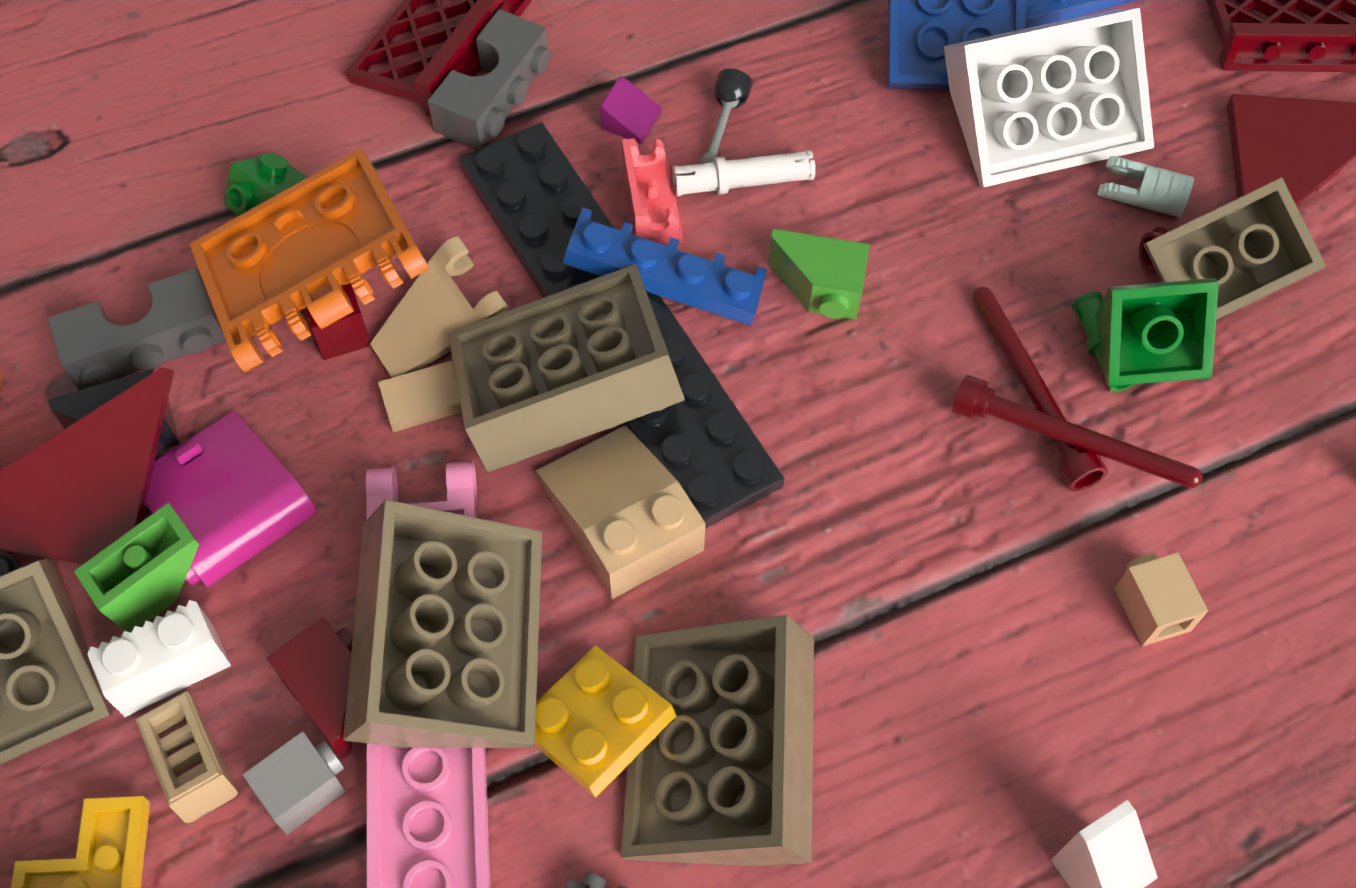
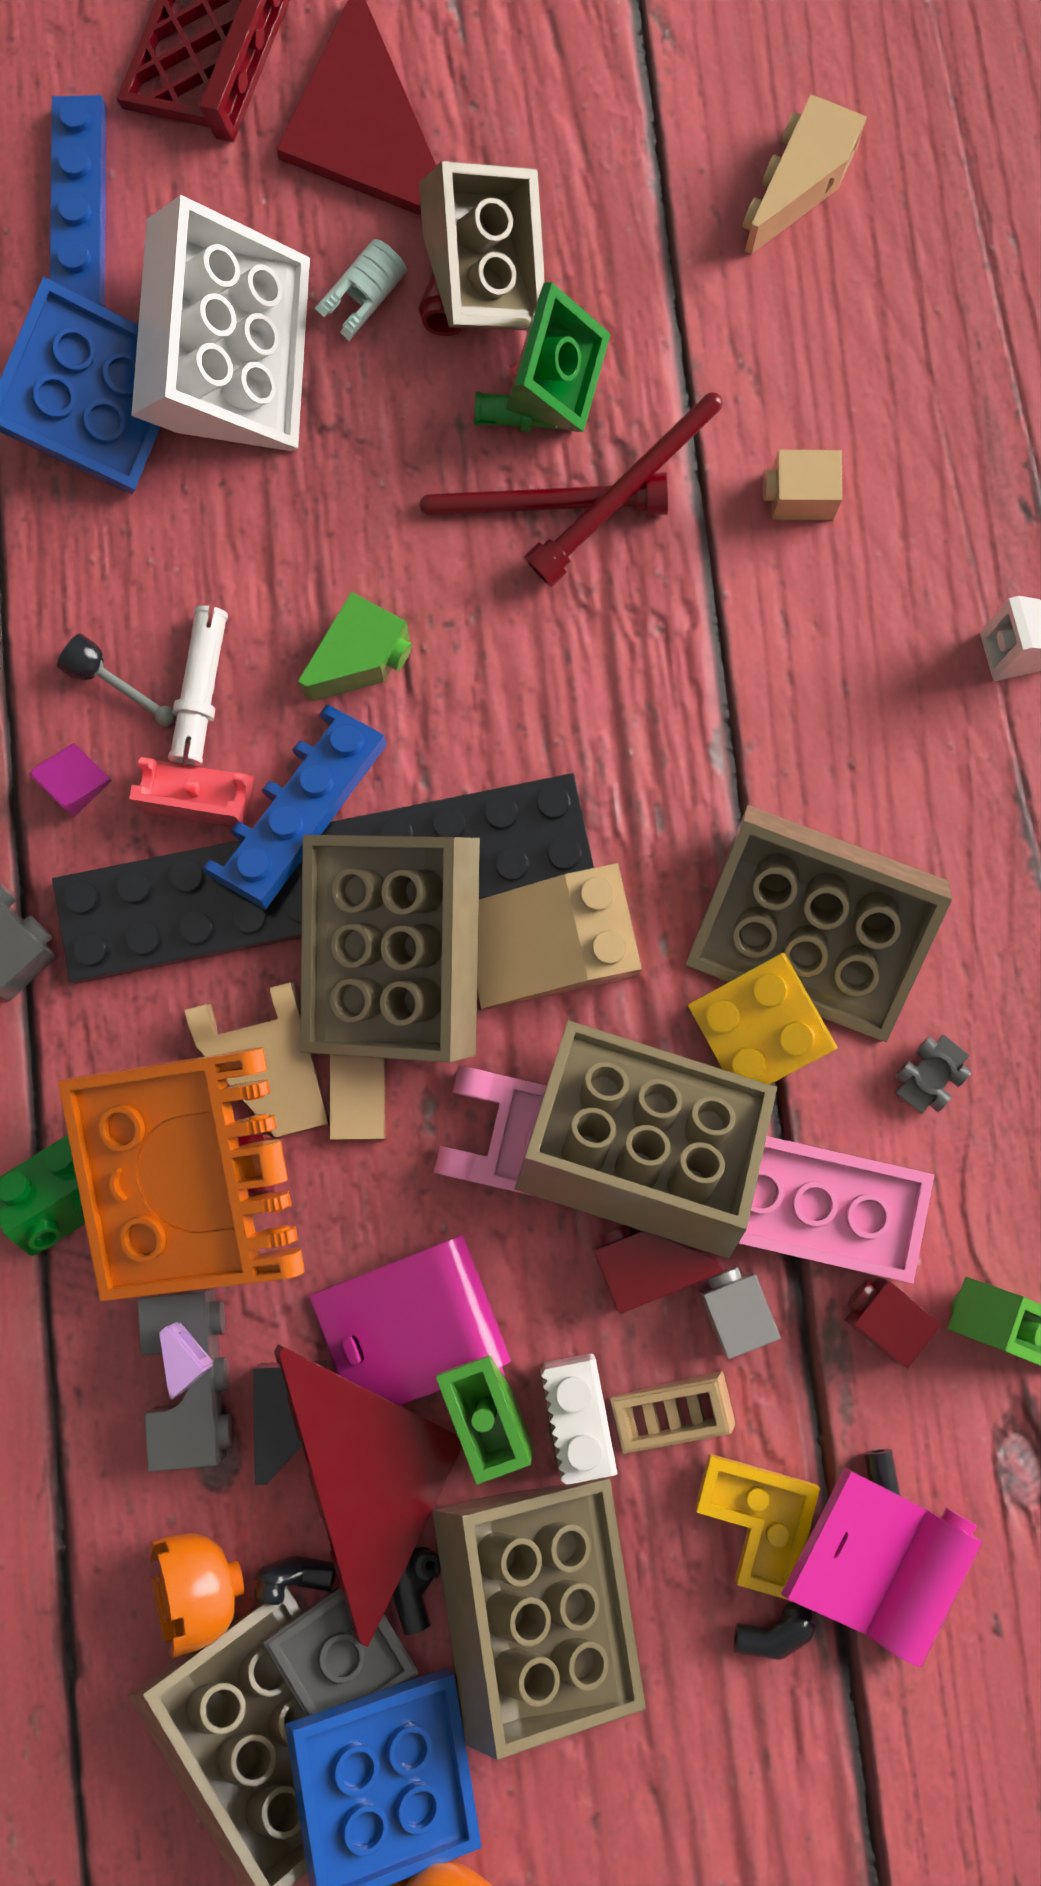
camera: 70 degrees left, 20 degrees up
(145, 302) = (182, 1358): none -> lavender slope

